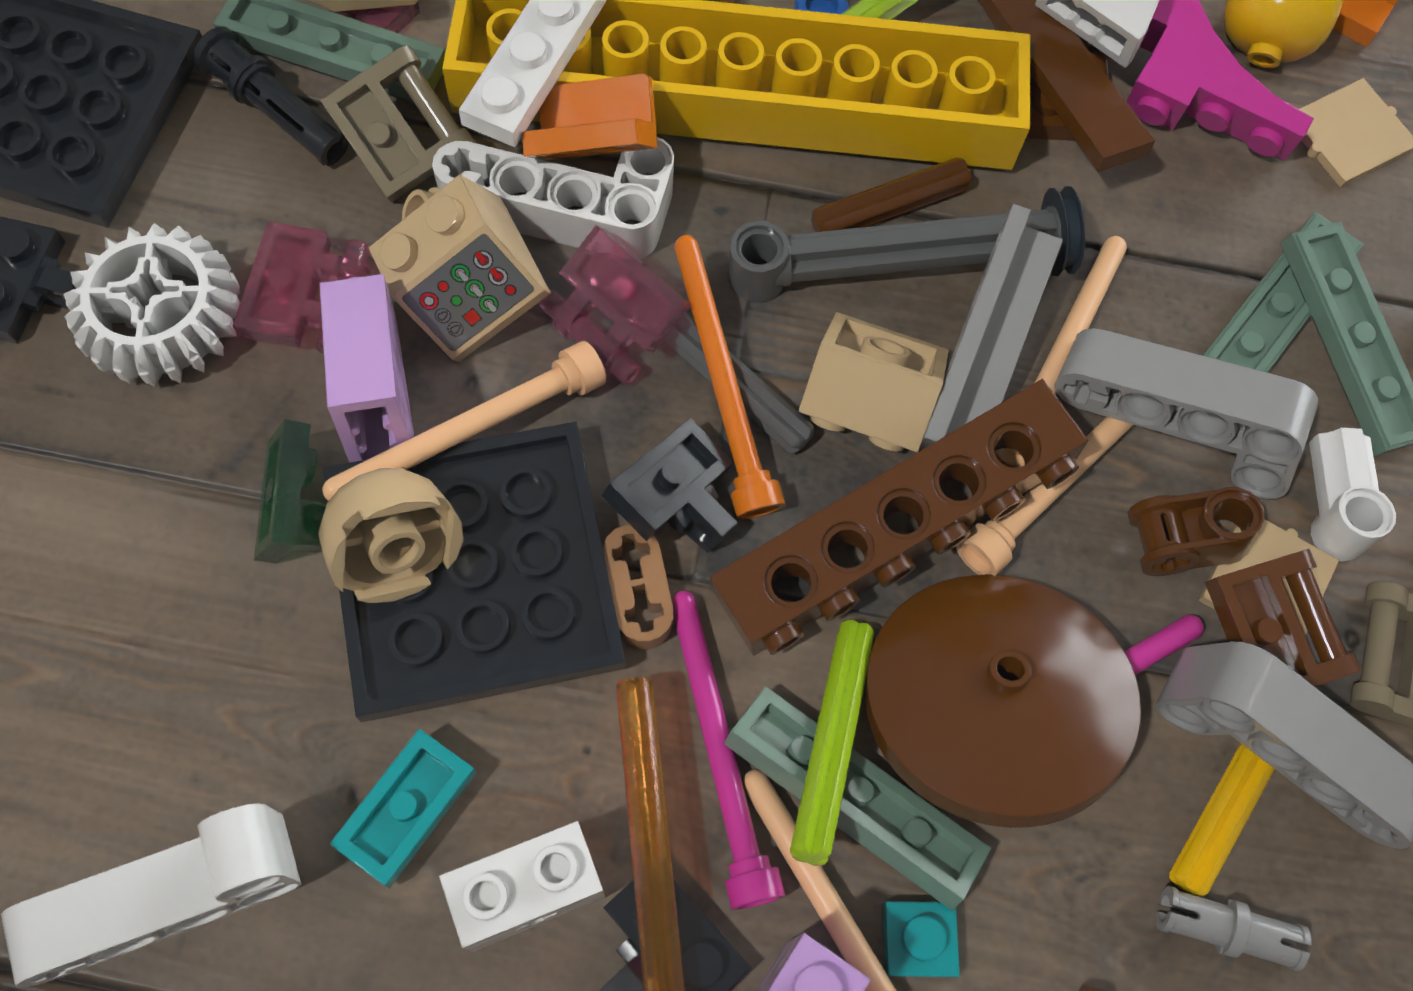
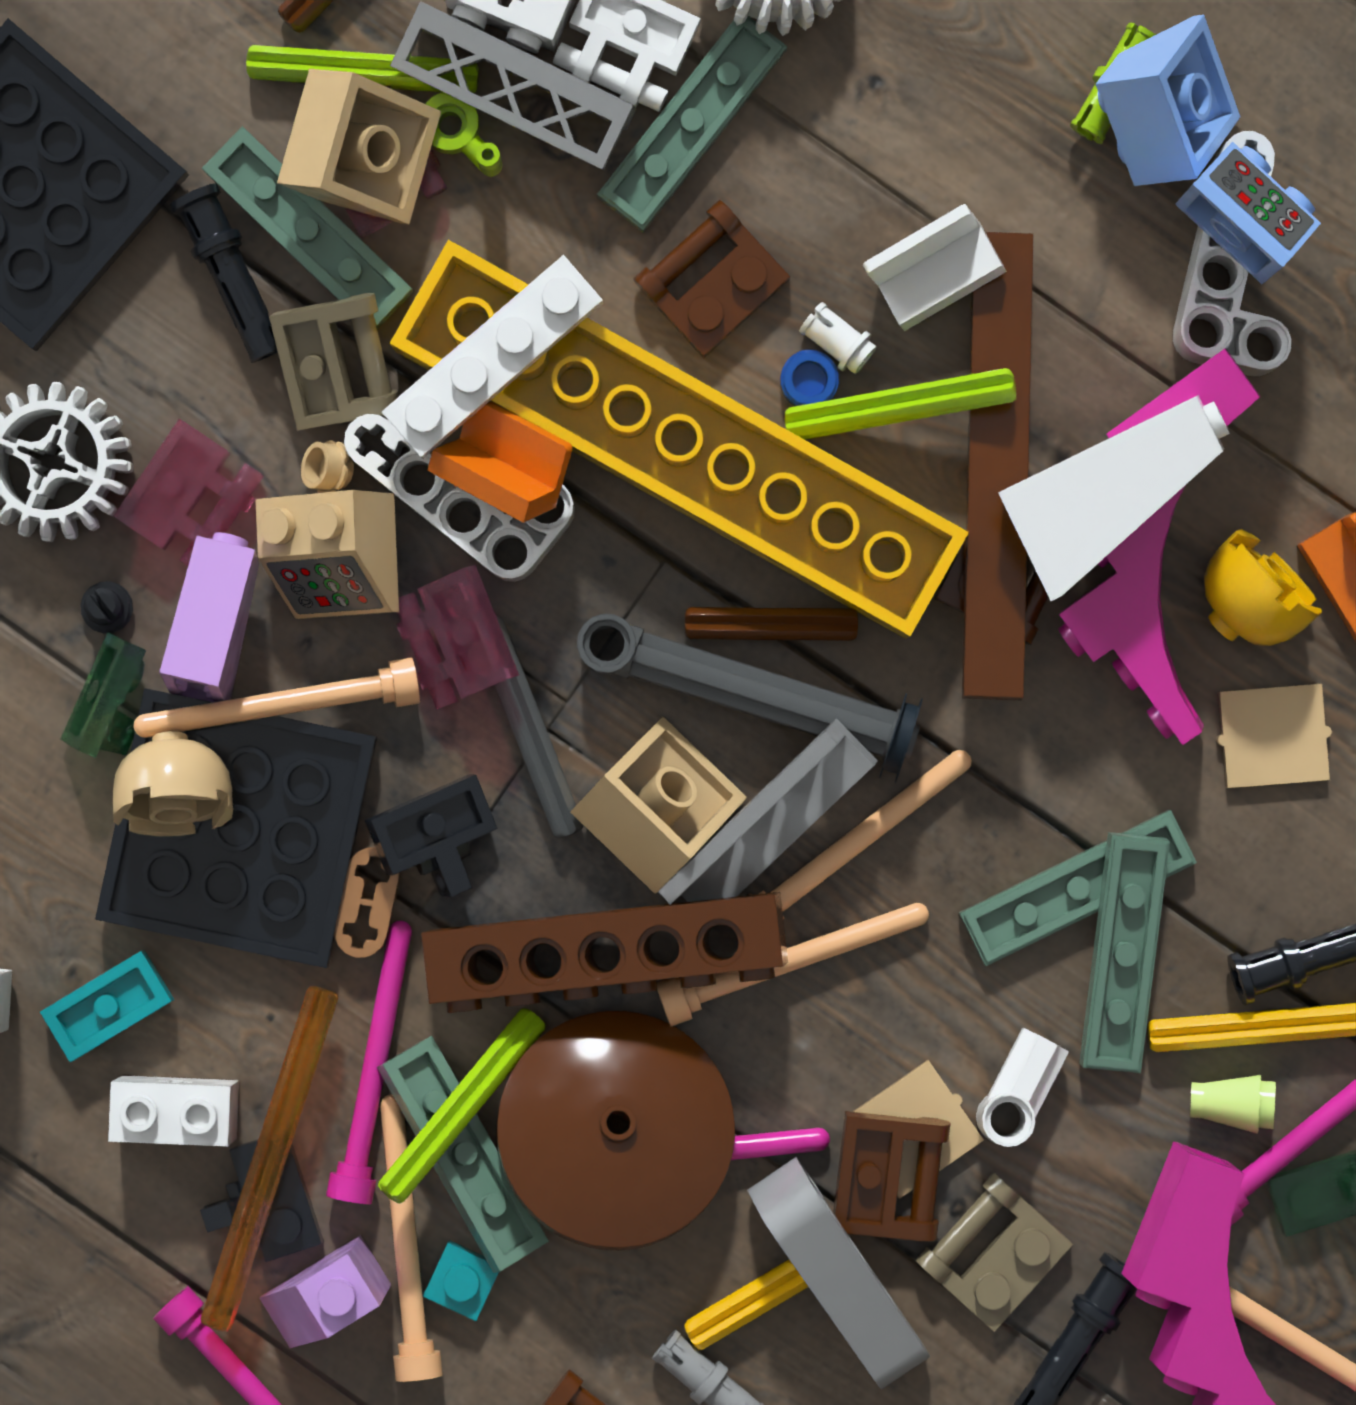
camera: 25 degrees right, 20 degrees up
(256, 418) = (106, 607): none -> black piece
(754, 490) = (503, 862): orange piece -> none
(1183, 534) = (856, 1064): reddish brown piece -> none
(1197, 400) = (915, 954): light grey beam -> none

